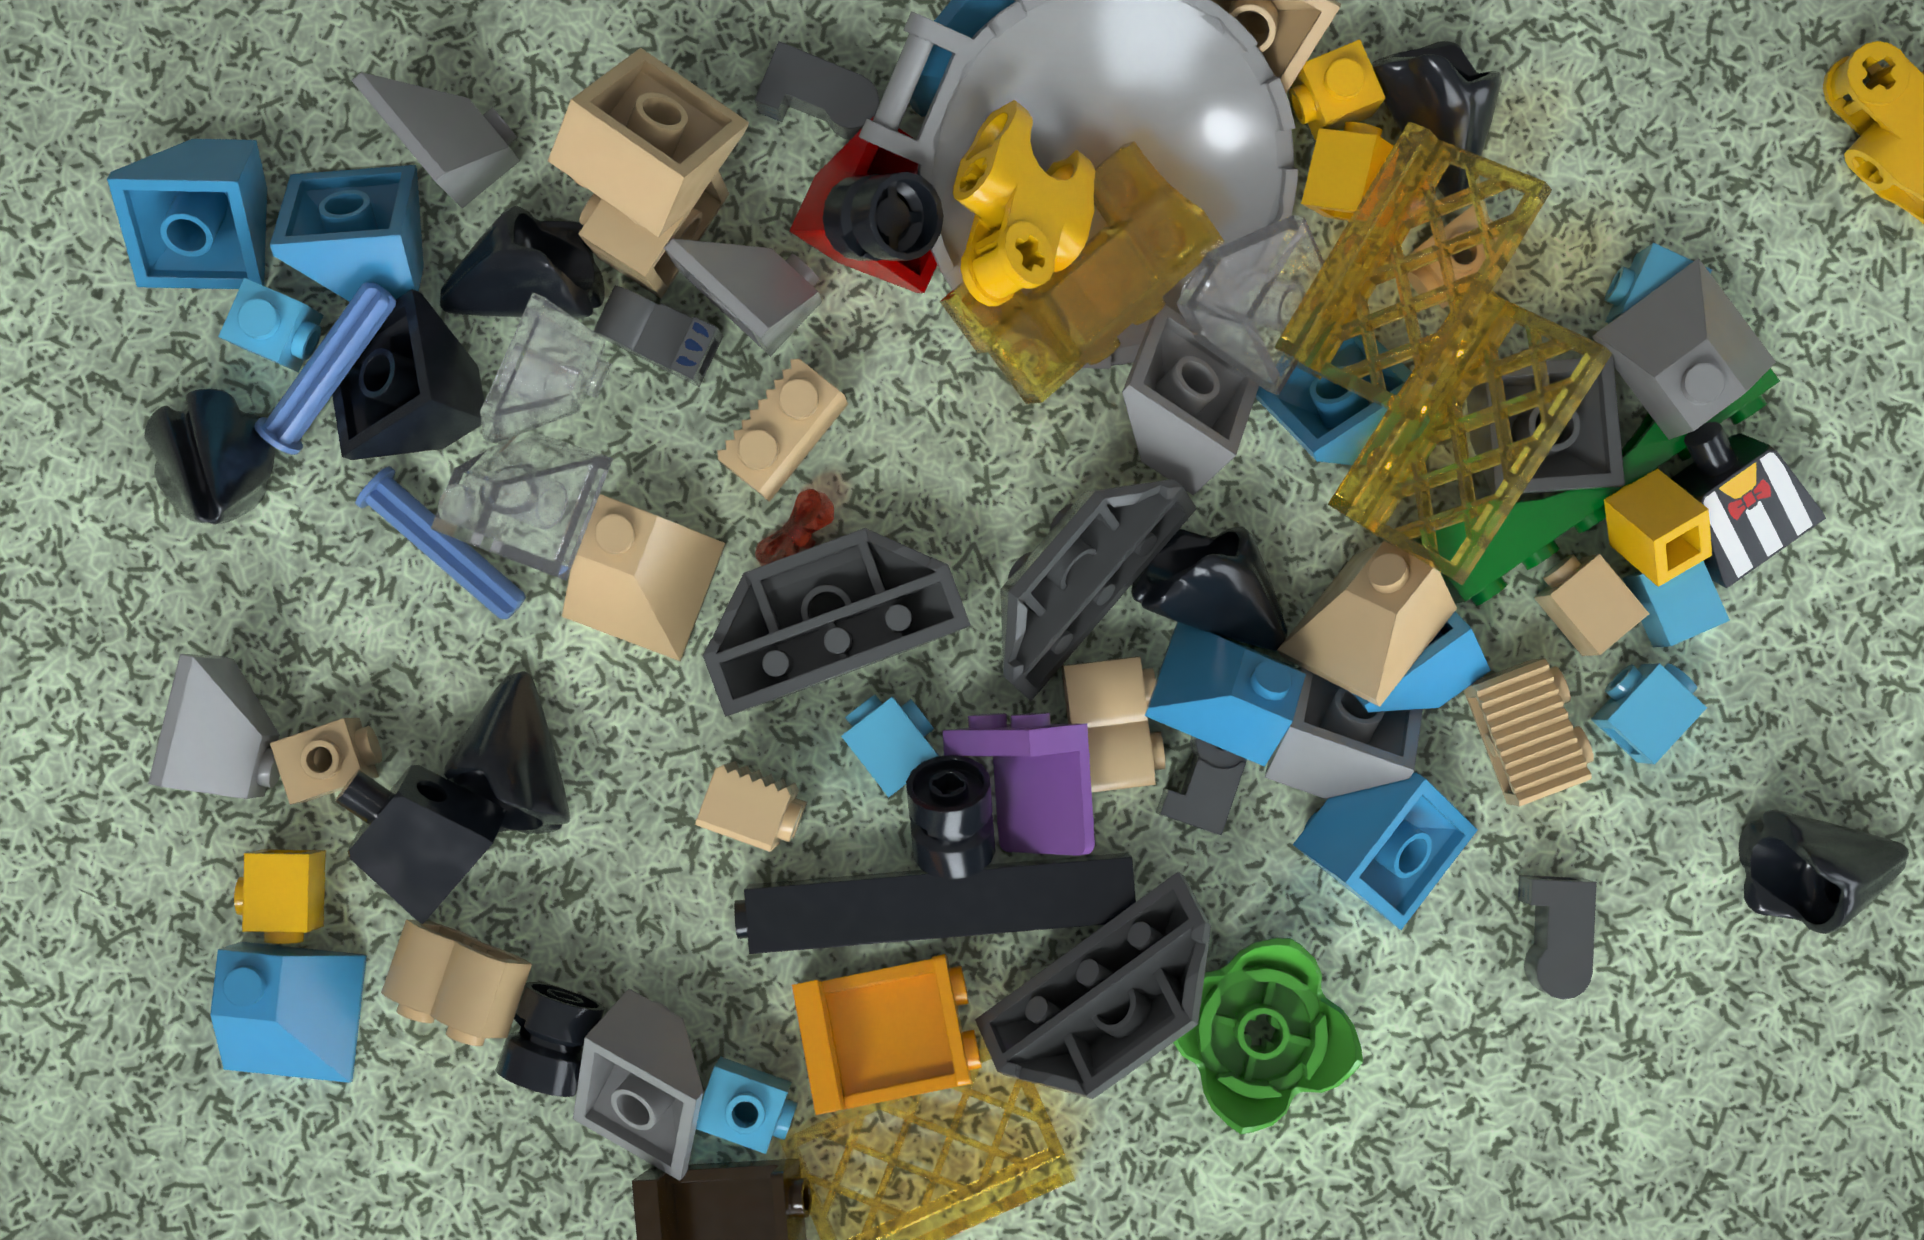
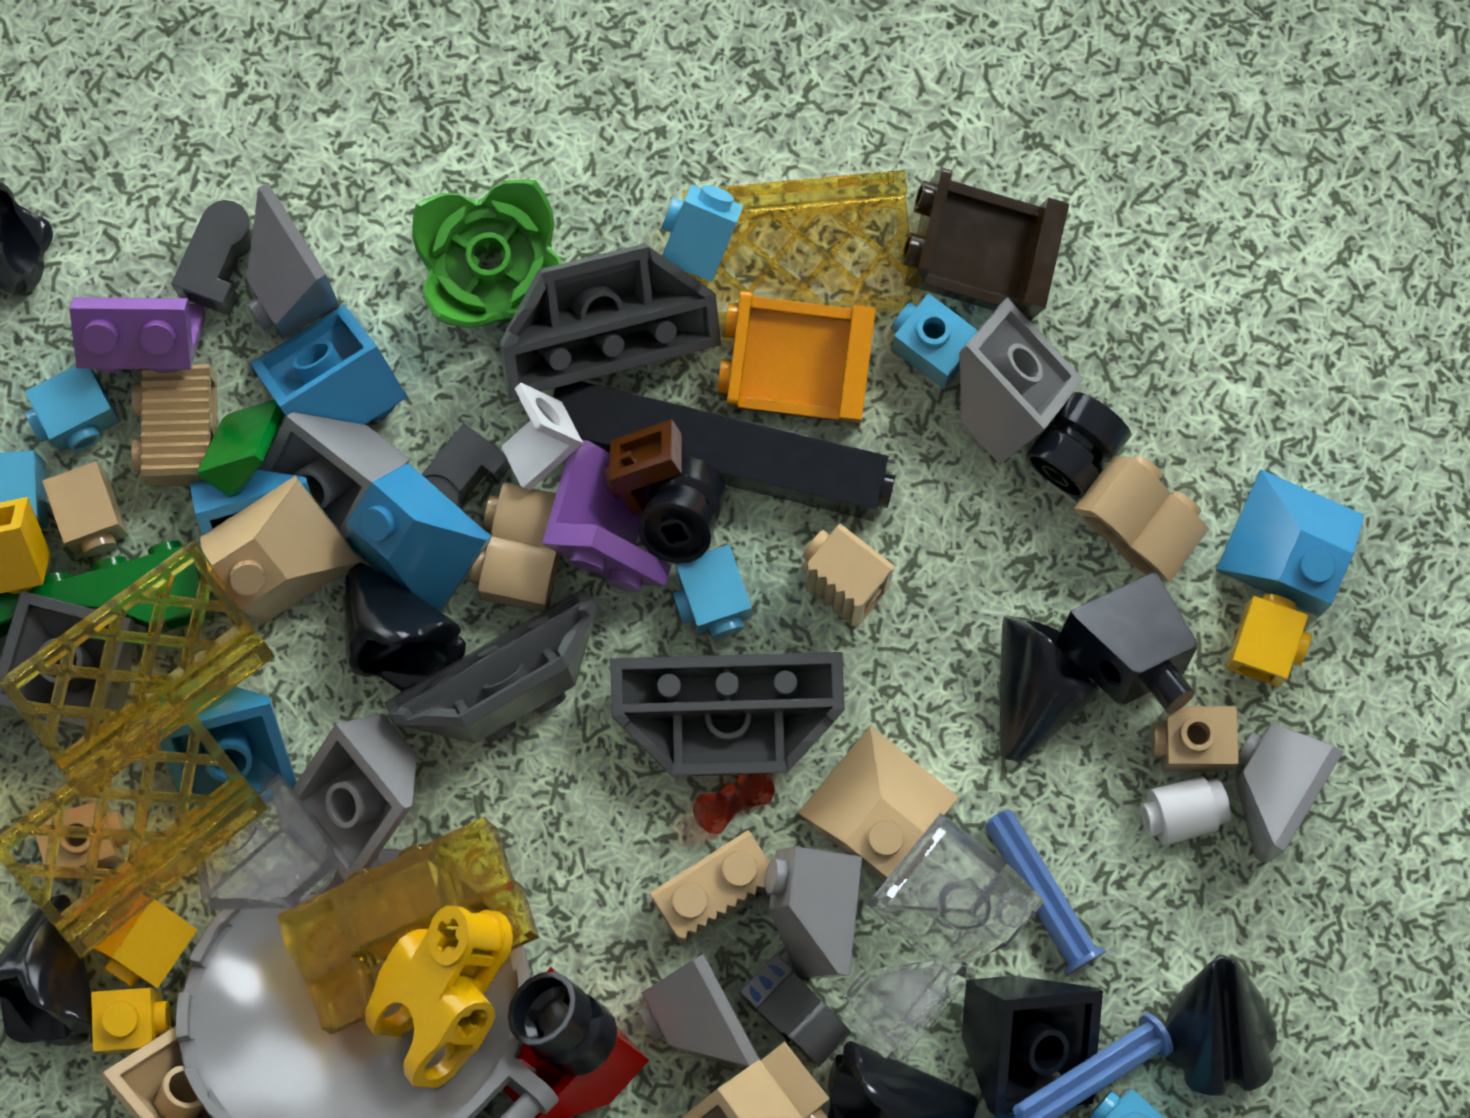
camera: 155 degrees left, 10 degrees down
(317, 680) = (1185, 810): none -> white brick
(662, 436) = (815, 908): none -> light grey slope
(1009, 853) = (642, 460): none -> reddish brown bracket
(1037, 1138) = (700, 229): none -> medium azure brick
(1127, 839) = (543, 441): none -> white bracket
(1452, 724) = (240, 446): none -> green slope
(1480, 939) = (283, 271): none -> light grey slope
(1612, 811) = (135, 333): none -> medium lavender bracket

